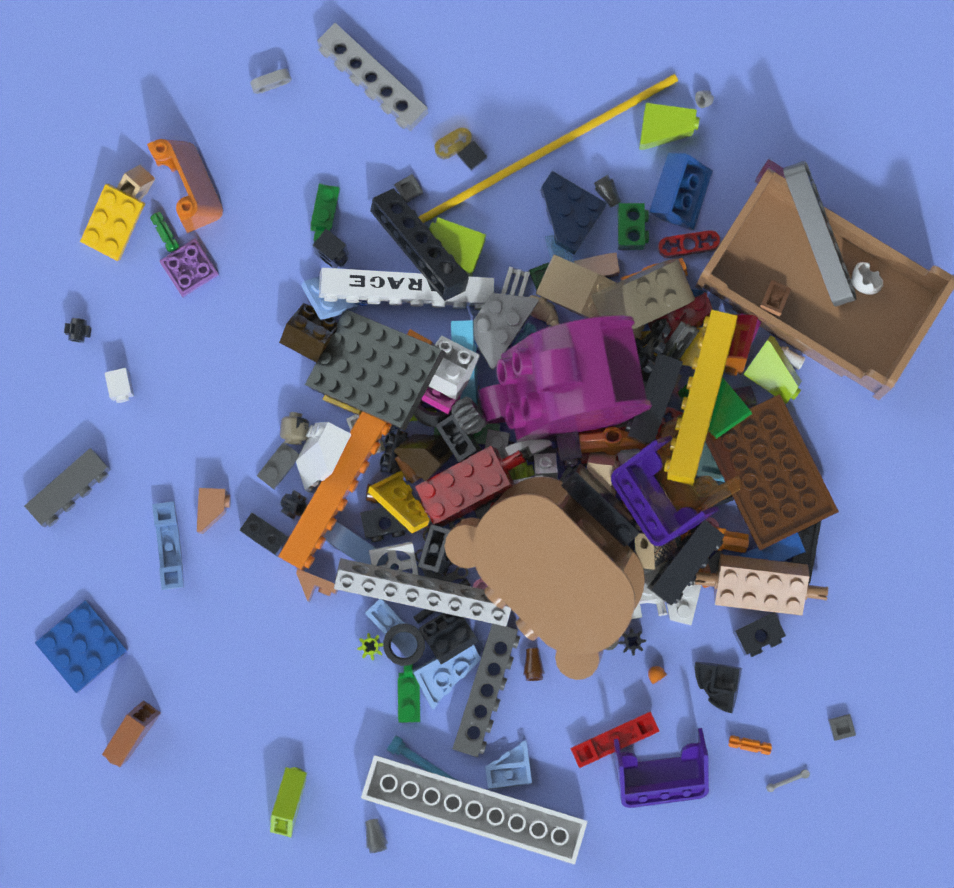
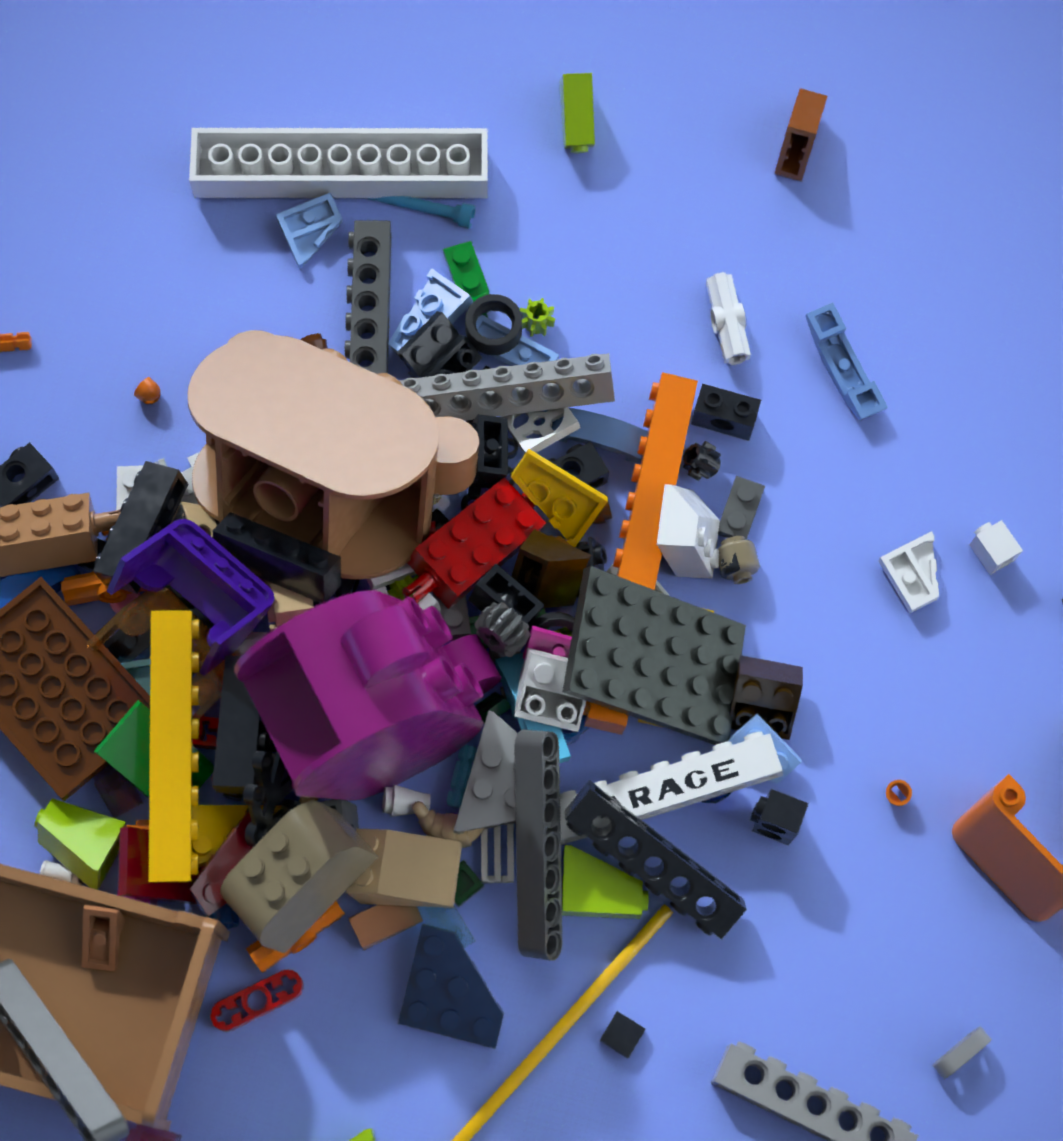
camera: 160 degrees right, 10 degrees down
(67, 488) = (1005, 396): dark grey brick -> none
(81, 646) = (904, 218): blue plate -> none
(164, 232) = (1026, 780): green axle -> none
(180, 386) = (913, 572): none -> white wing
(189, 268) = (967, 738): medium lavender tile -> none
(211, 507) = (810, 428): nougat slope -> none
(237, 605) = (728, 318): none -> white piece
(251, 242) = (904, 787): none -> orange hinge
(310, 582) = (637, 375): nougat slope -> none
(324, 209) = (809, 880): green hinge -> none
(375, 837) = (455, 104): dark grey cone -> none
(408, 188) = (699, 953): dark grey tile -> none
(450, 139) = (651, 1039): clear yellow beam -> none
(488, 274) = (538, 844): none -> dark grey beam
(488, 378) = (495, 703): none -> dark green tile
(603, 744) = (184, 299): red slope -> none
(606, 189) = (403, 1044): clear smoke cone -> none
(628, 226) = (357, 995): green brick -> none
(638, 641) = (190, 429): black gear -> none
(663, 779) = (108, 271): dark purple windscreen -> none
(680, 340) = (227, 826): dark grey tile -> none
(681, 190) = (290, 1077): blue slope -> none
(719, 683) = (60, 407): black brick -> none

